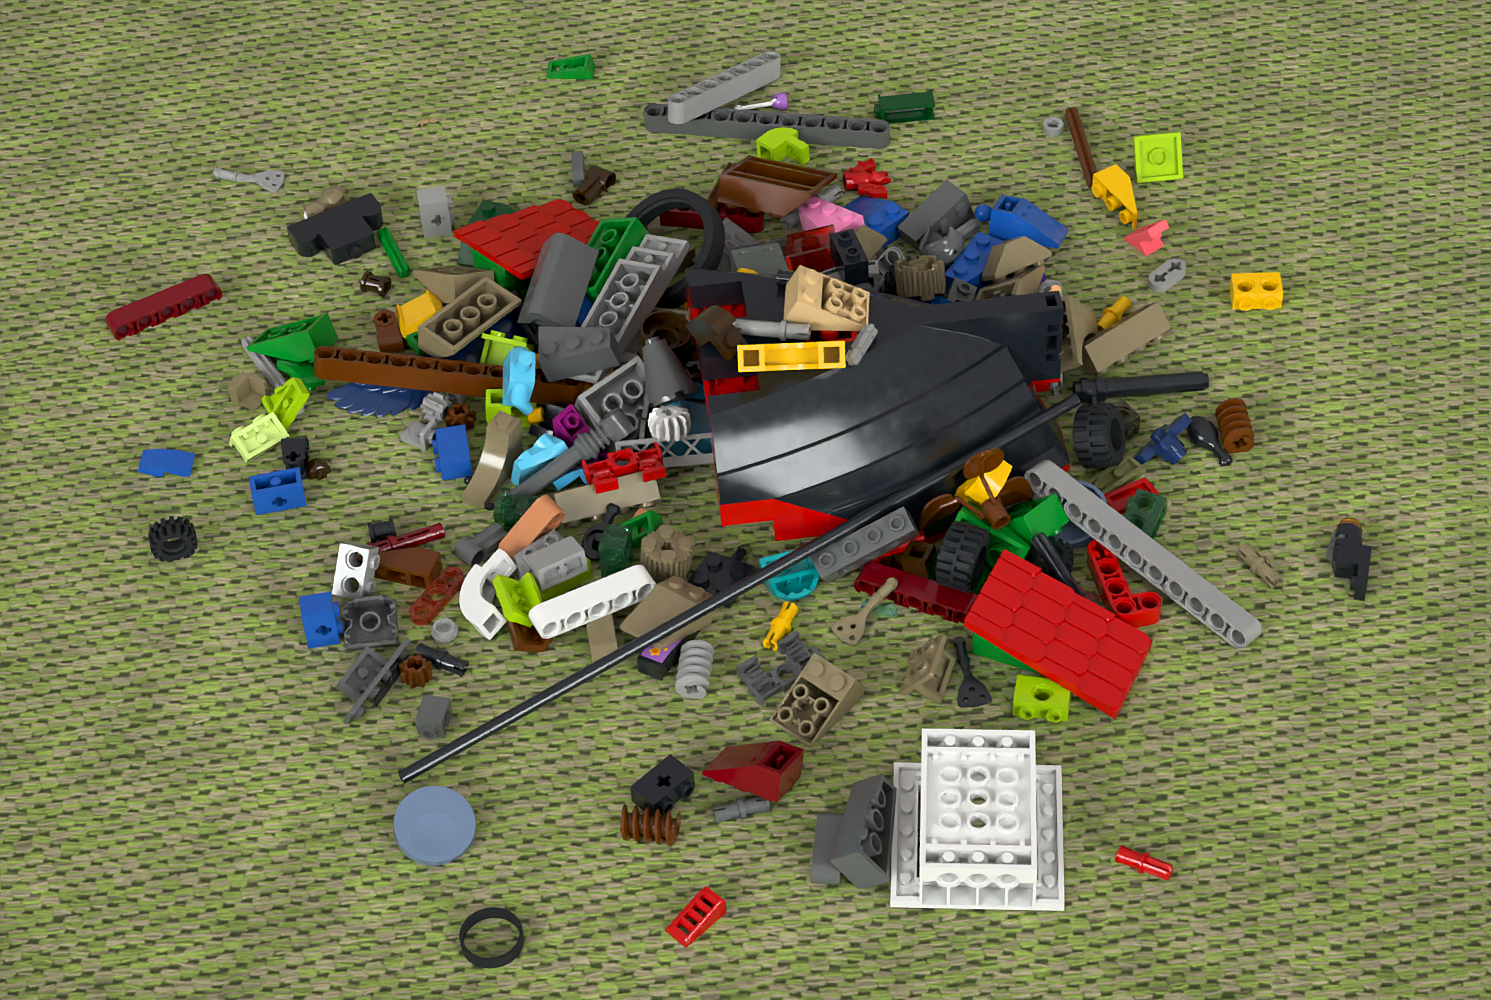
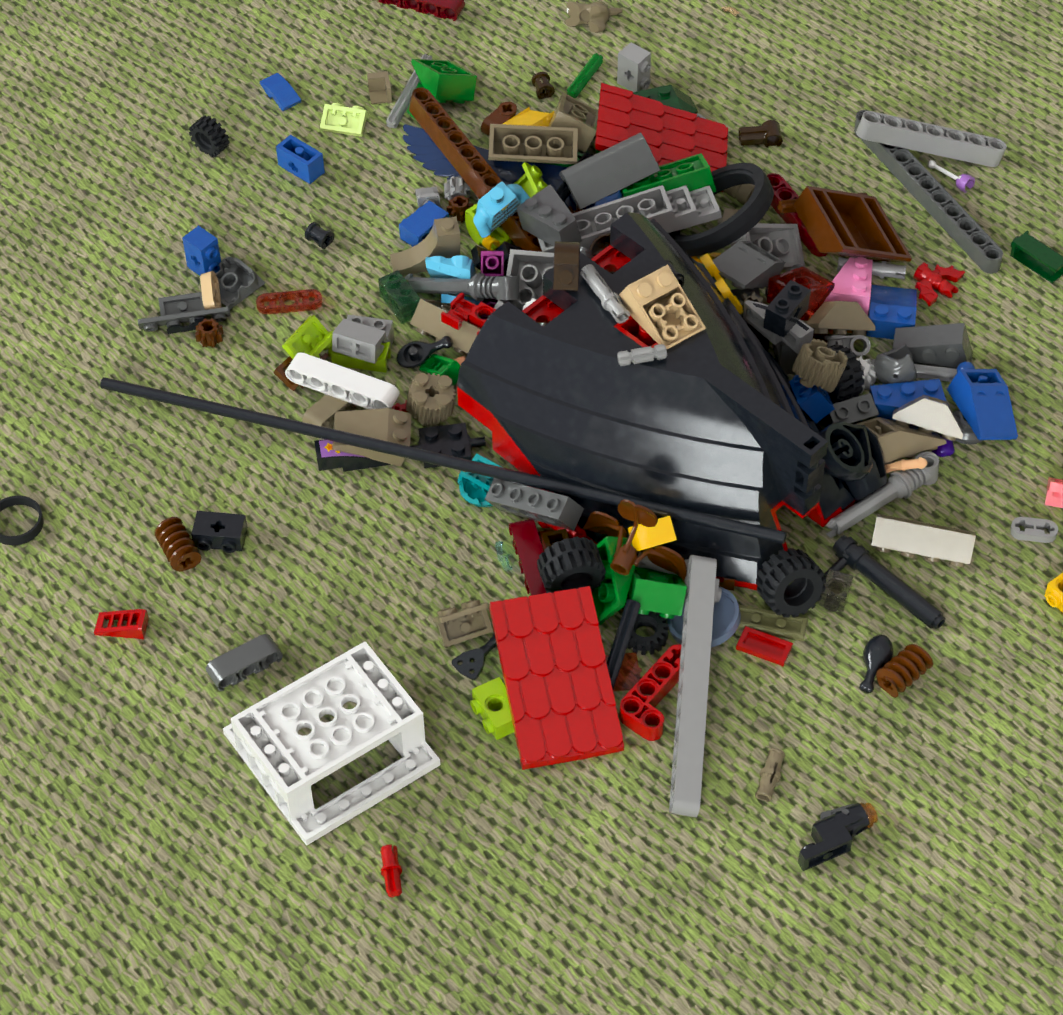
camera: 50 degrees right, 5 degrees up
(287, 401) = (384, 110): lime wing -> none
(295, 453) = (344, 149): black piece -> none
(316, 468) = (348, 168): dark brown piece -> none
(340, 231) = (573, 36): black brick -> none
(349, 568) = (261, 242): light grey brick -> none
(367, 638) = (210, 290): none -> tan beam
(408, 566) = (297, 266): reddish brown slope -> none
(411, 539) = (311, 249): dark red pin -> none
(433, 716) = (176, 367): dark grey brick -> none
(434, 825) = (82, 427): sand blue piece -> none
(442, 659) = (233, 339): black pin -> none
(444, 630) = (261, 325): light grey plate -> none
(476, 548) = (348, 293): dark grey piece -> none
(478, 594) = (328, 314): white arch -> none
(536, 522) = (387, 305): nougat beam -> none
(578, 68) = (875, 58): green slope -> none
(578, 172) = (772, 111): dark grey beam -> none
(615, 549) = (402, 366): clear green brick -> none
(694, 669) = (340, 480): light grey piece -> none
(740, 808) = (240, 588): dark grey pin -> none
(758, 768) = (276, 575): dark red slope -> none
(761, 684) = (372, 533): dark grey piece -> none
(780, 143) = (917, 209): lime brick -> none
(780, 625) = (431, 507): yellow pin -> none
(791, 356) = (568, 307): yellow arch -> none
(817, 701) = (378, 571): dark tan slope -> none
(860, 618) = (479, 549): dark tan piece -> none
(866, 833) = (262, 673): dark grey wedge -> none
(1077, 326) = (887, 492): dark tan arch -> none
(1114, 313) = (950, 519): yellow pin -> none
(1146, 520) = (740, 671): clear green brick -> none
(1165, 442) = (835, 634): dark blue plant -> none

